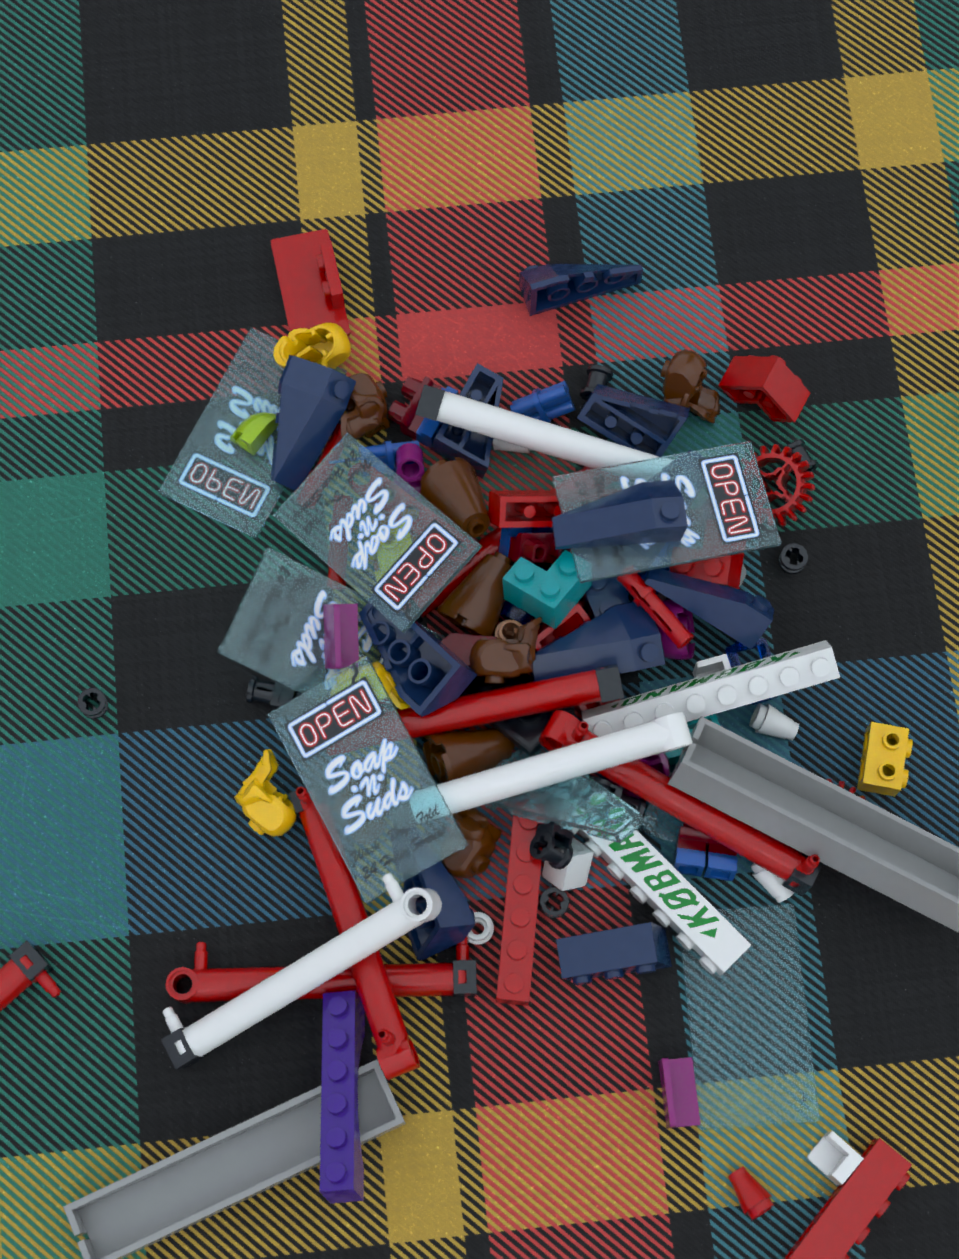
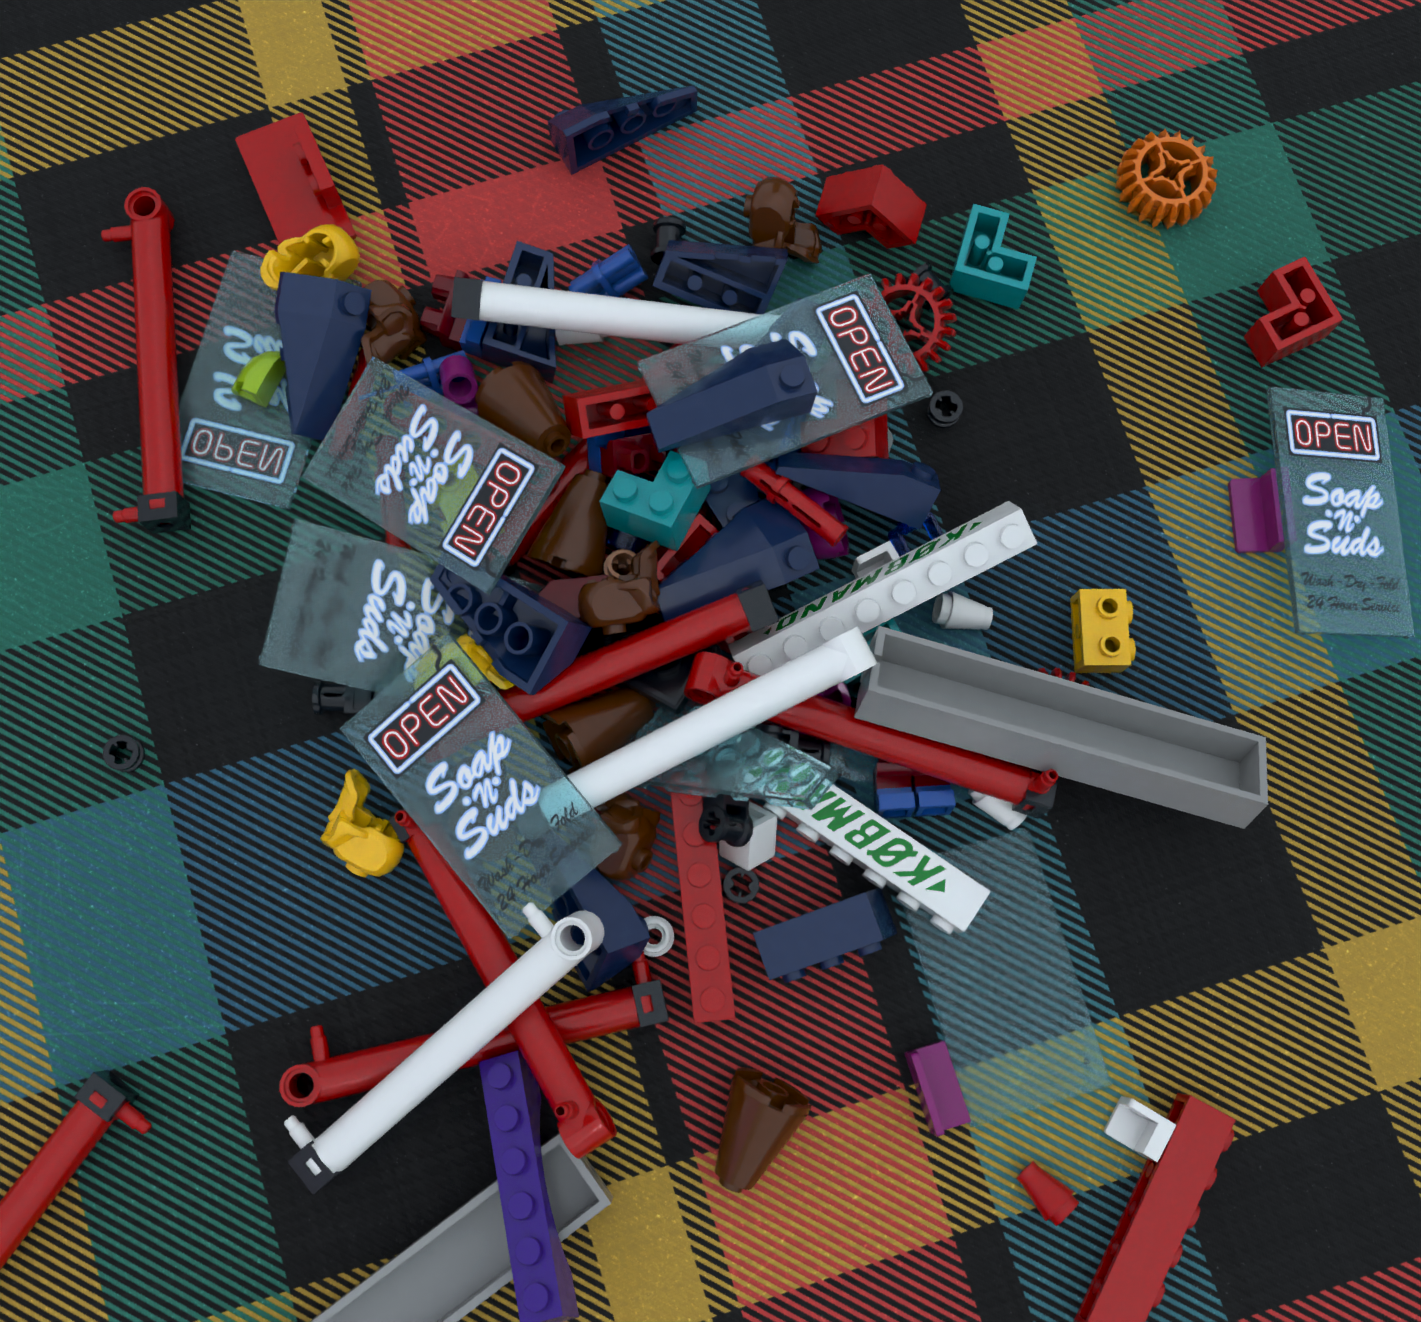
camera: 15 degrees left, 5 degrees up
(161, 515) = (163, 501): none -> red piece
(340, 635) = (412, 611): magenta panel -> none
(528, 1091) = (756, 1127): none -> reddish brown cone
(847, 452) = (985, 267): none -> teal brick

